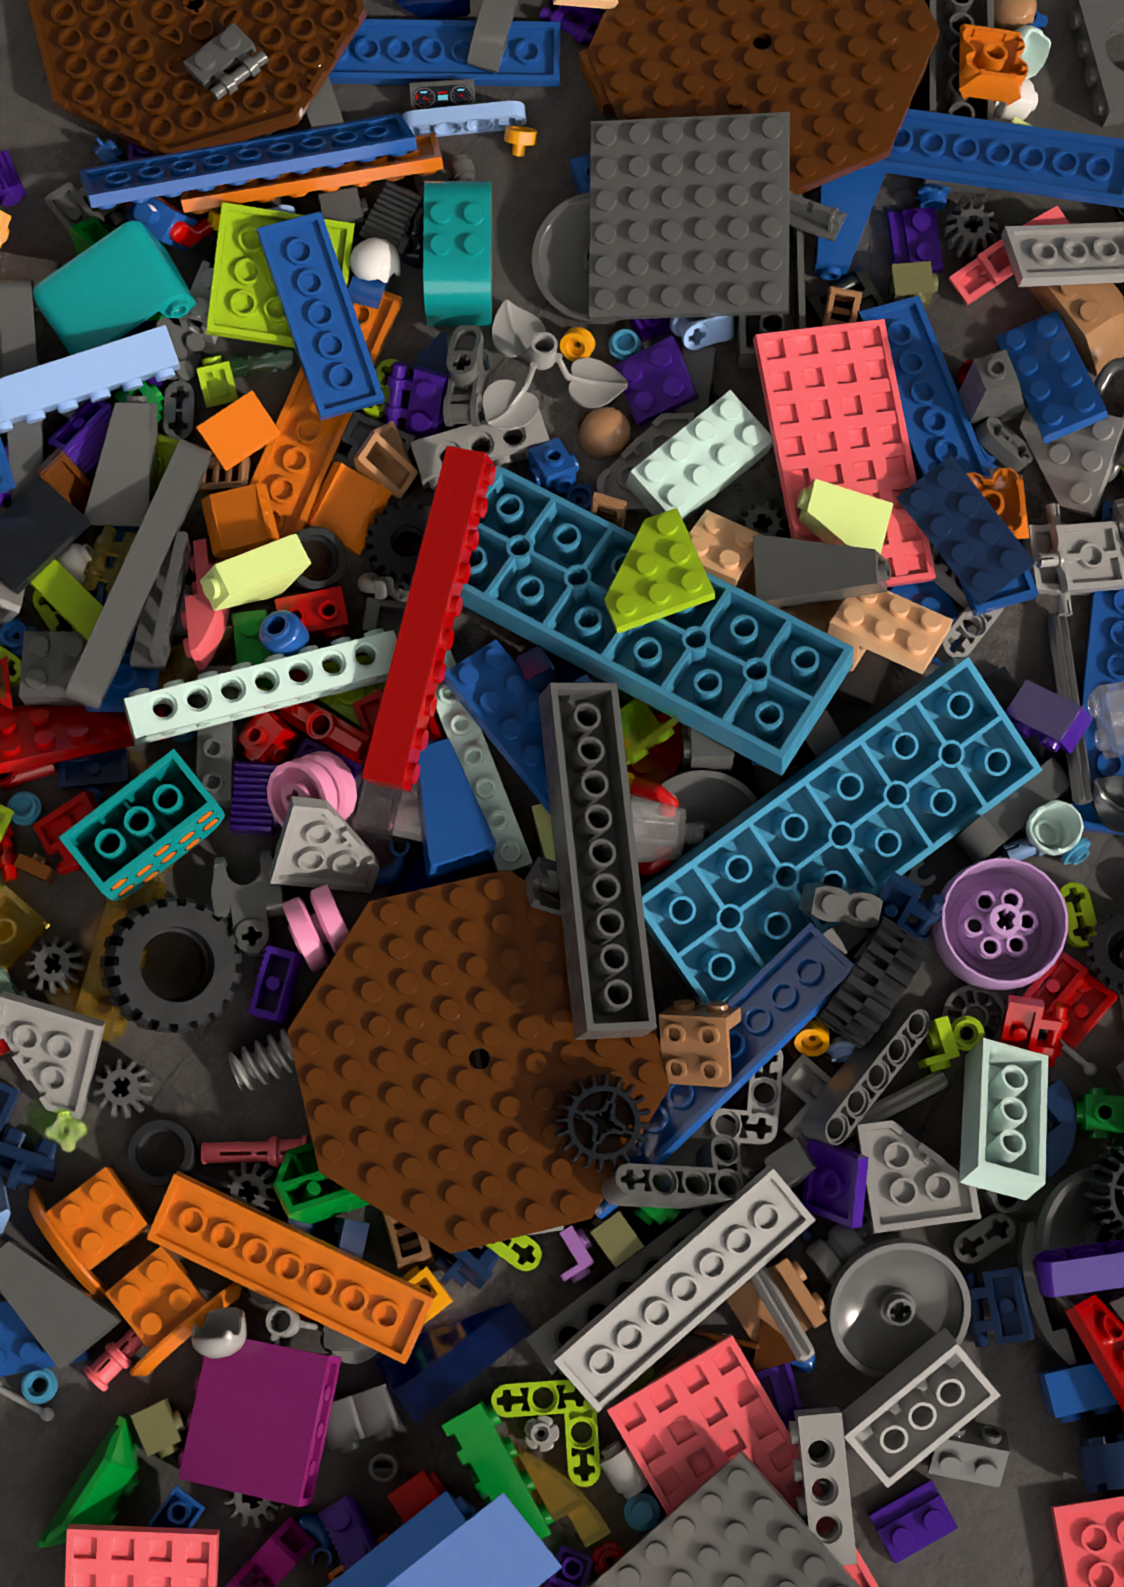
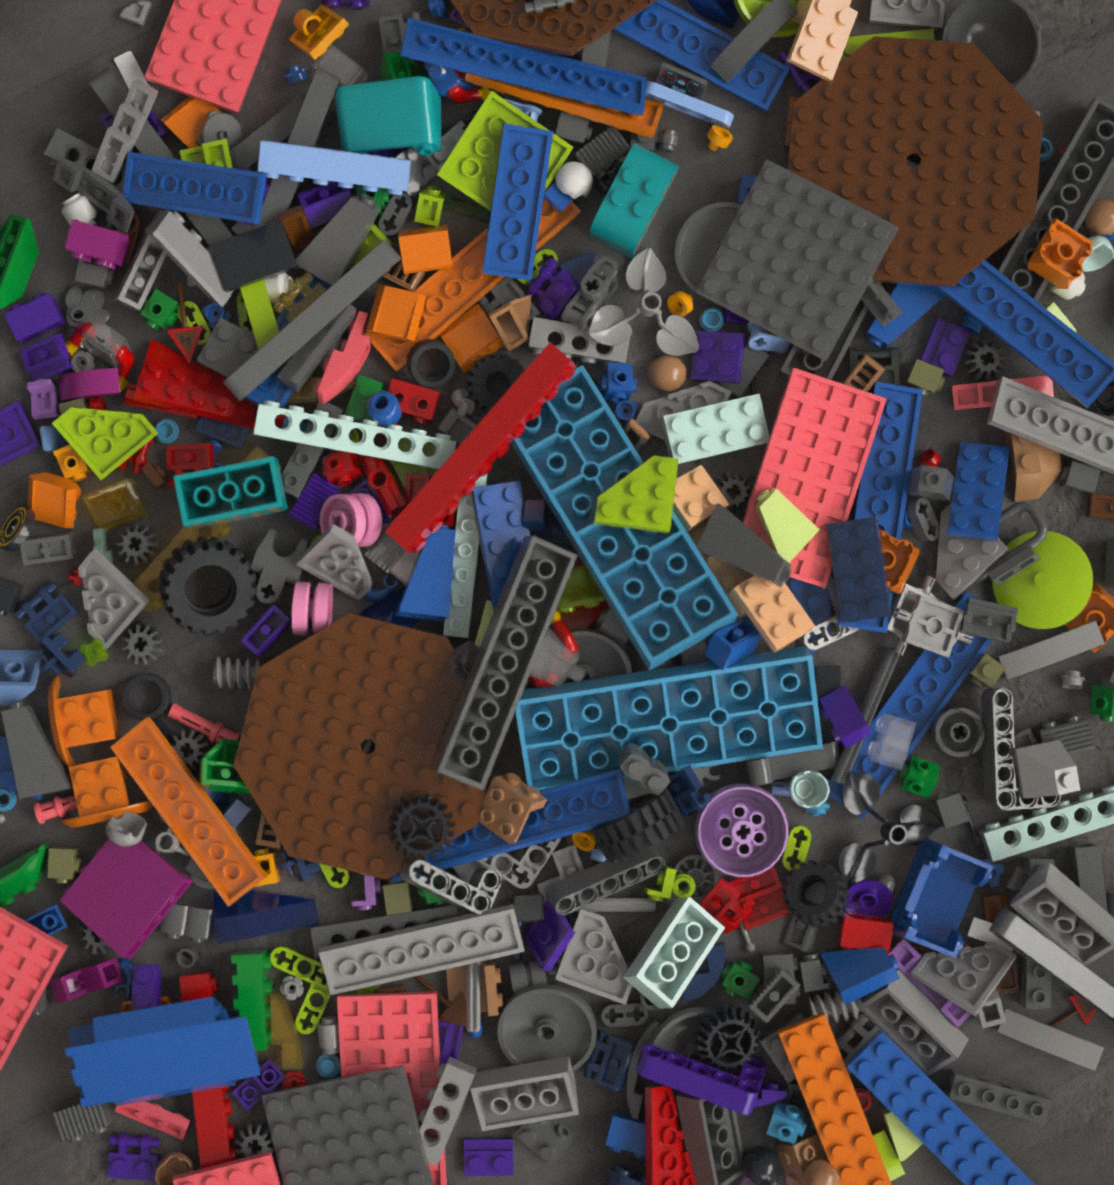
camera: 25 degrees right, 10 degrees up
(255, 574) = (385, 359): yellowish green slope -> none
(864, 693) = (733, 643): none -> blue brick

